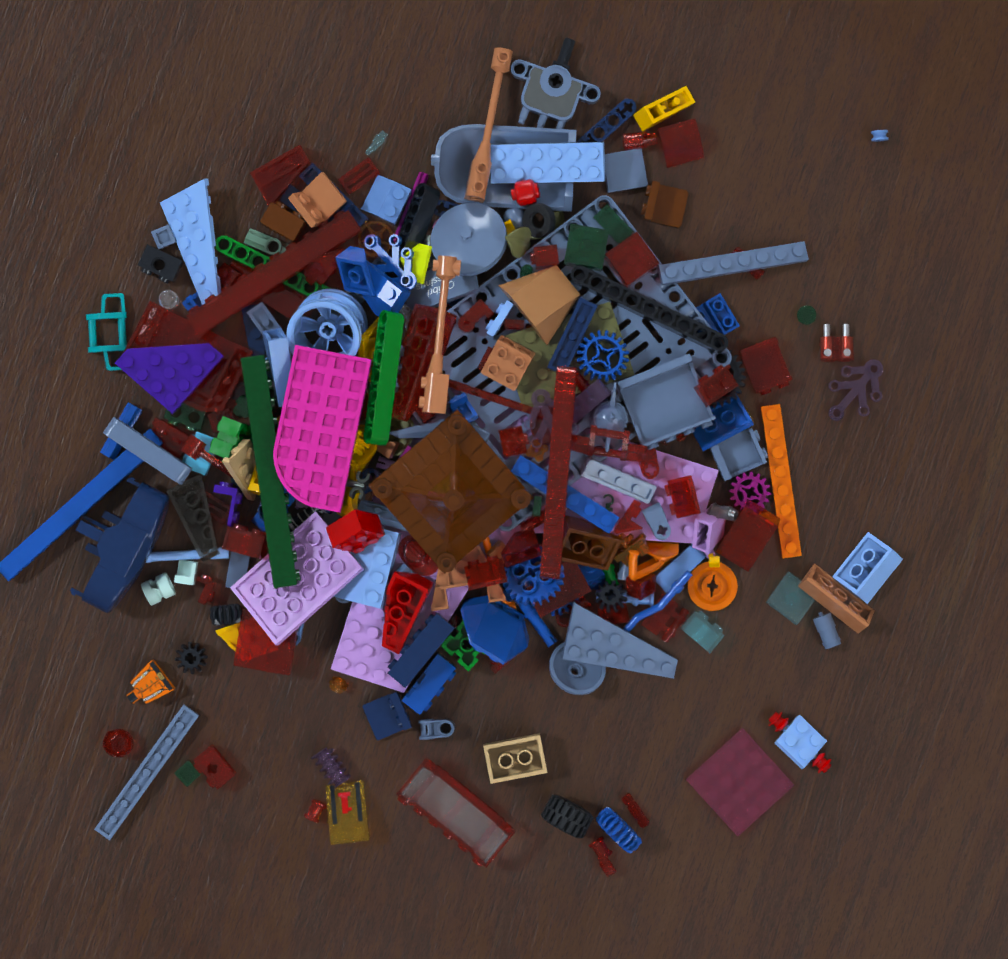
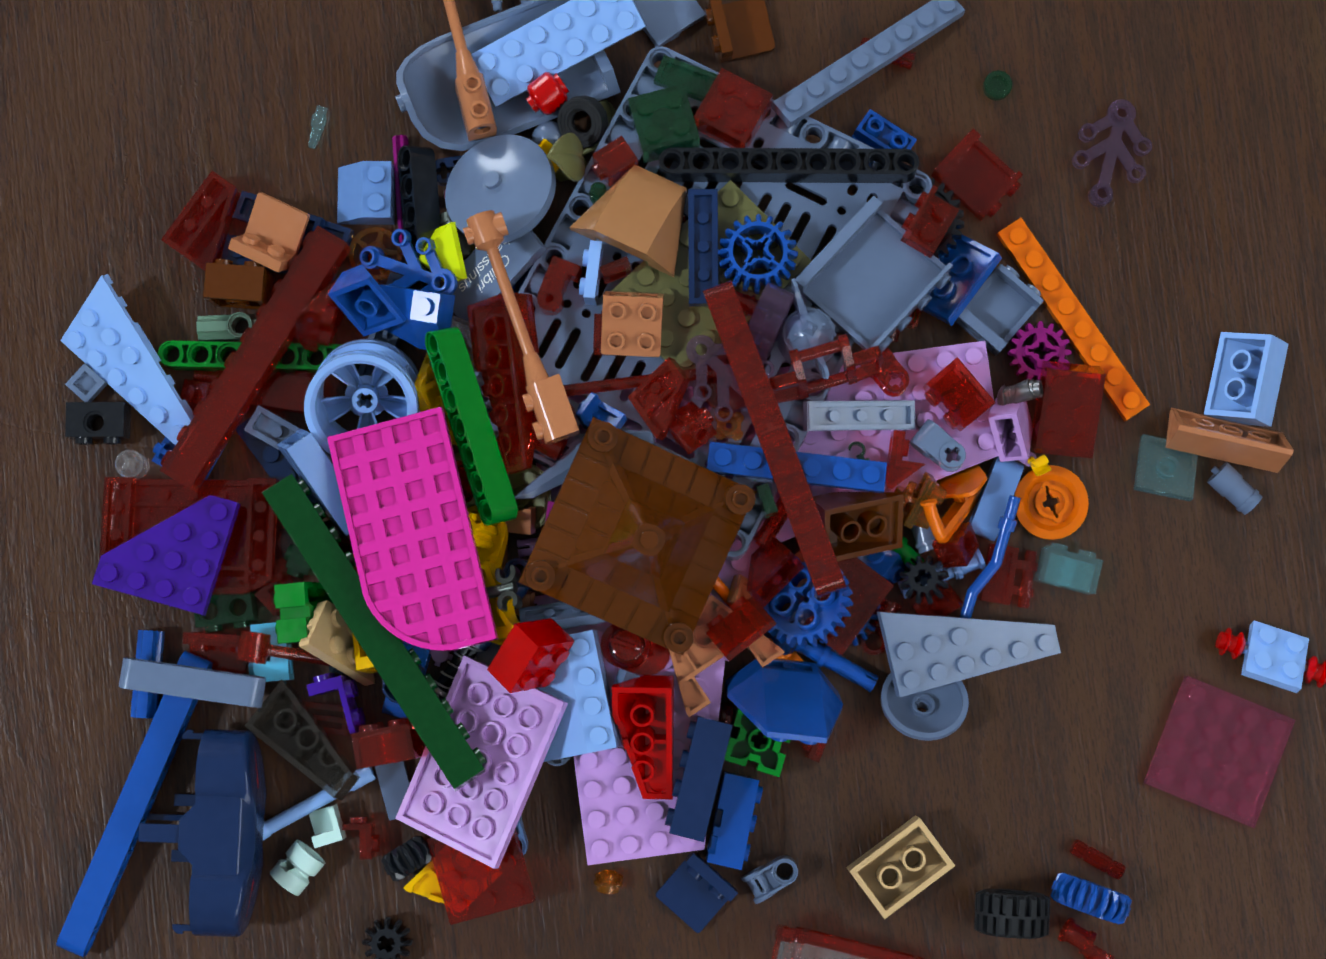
camera: 25 degrees left, 5 degrees down
(91, 318) = (74, 518): teal bar -> none
(364, 181) = (303, 202): clear red tile -> none
(503, 415) = (660, 397): none -> clear red wing
(836, 348) = (1060, 108): clear red piece -> none

